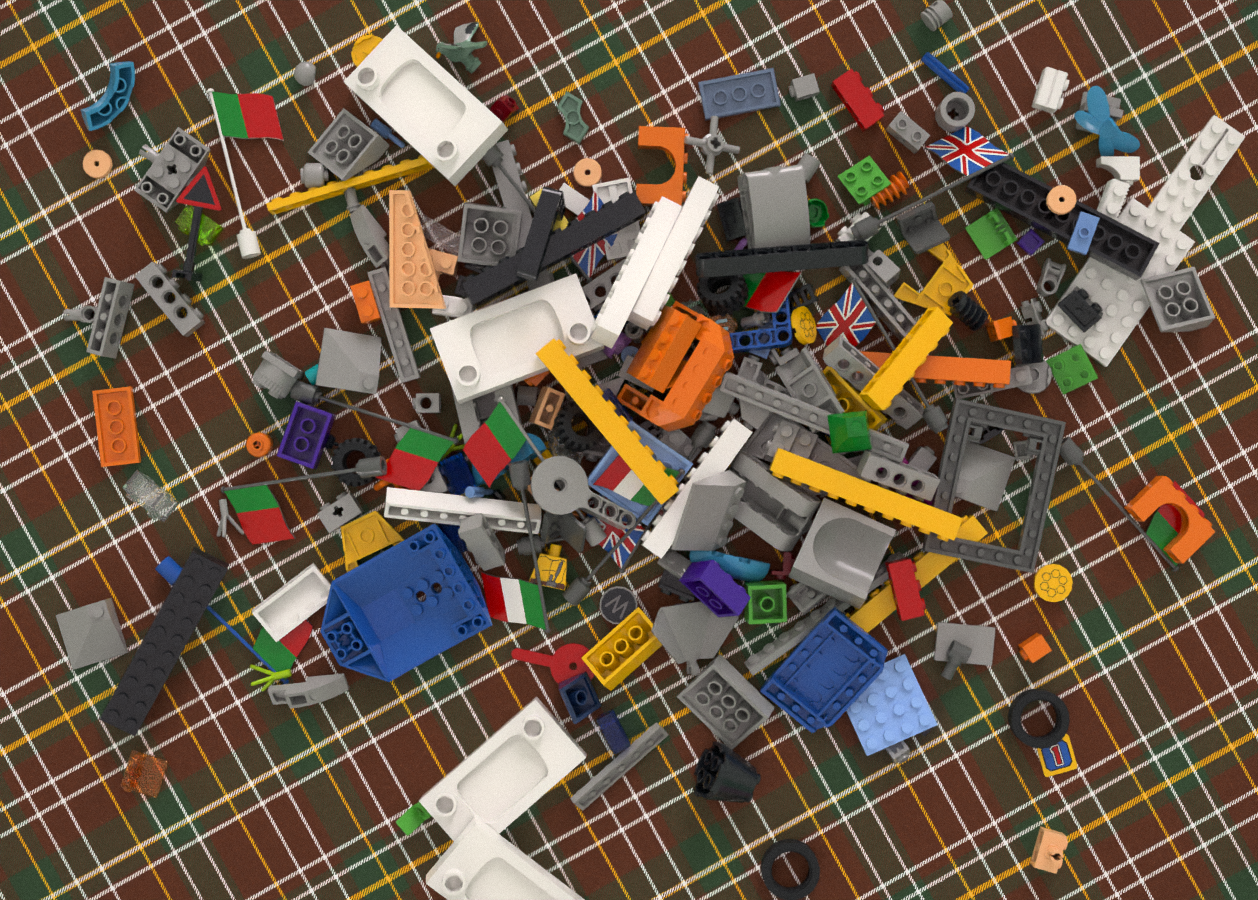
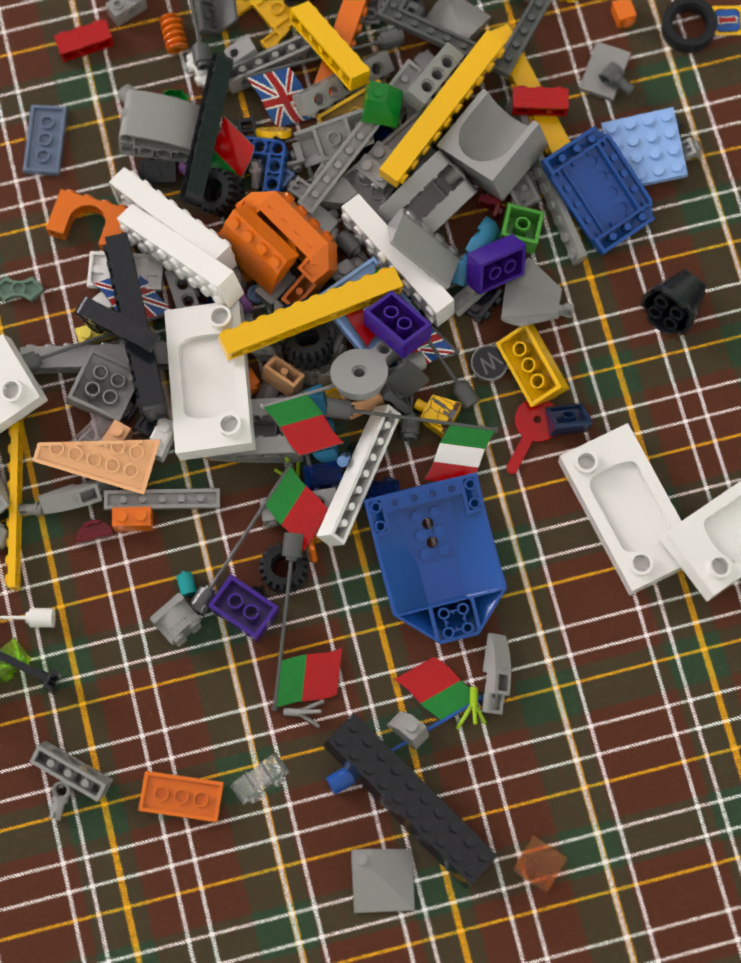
camera: 70 degrees left, 15 degrees down
(148, 279) = (40, 713): light grey brick -> none
(233, 620) = (409, 729): none -> light grey slope
(254, 440) = (237, 651): orange head -> none
(293, 602) = (405, 665): white slope -> none
(347, 267) = (93, 530): none -> dark red plate
(349, 361) = (185, 548): light grey slope -> none
(350, 507) = (328, 586): light grey brick -> none
(366, 537) = (360, 580): yellow wing -> none
(413, 818) = (648, 605): bright green bracket -> none
(435, 406) = (246, 479): light grey brick -> none
(482, 542) = (394, 465): light grey brick -> none
(590, 165) = (70, 283): light nougat piece -> none
(613, 731) = (609, 395): clear blue brick -> none
(618, 510) = (397, 324): none -> dark purple brick
(619, 766) = (644, 399): light grey plate -> none
(711, 145) = (83, 171): light grey bar -> none
(726, 702) = (606, 288): light grey slope -> none
(804, 87) = (57, 81): light grey brick -> none
(864, 180) = (158, 50): bright green hinge -> none

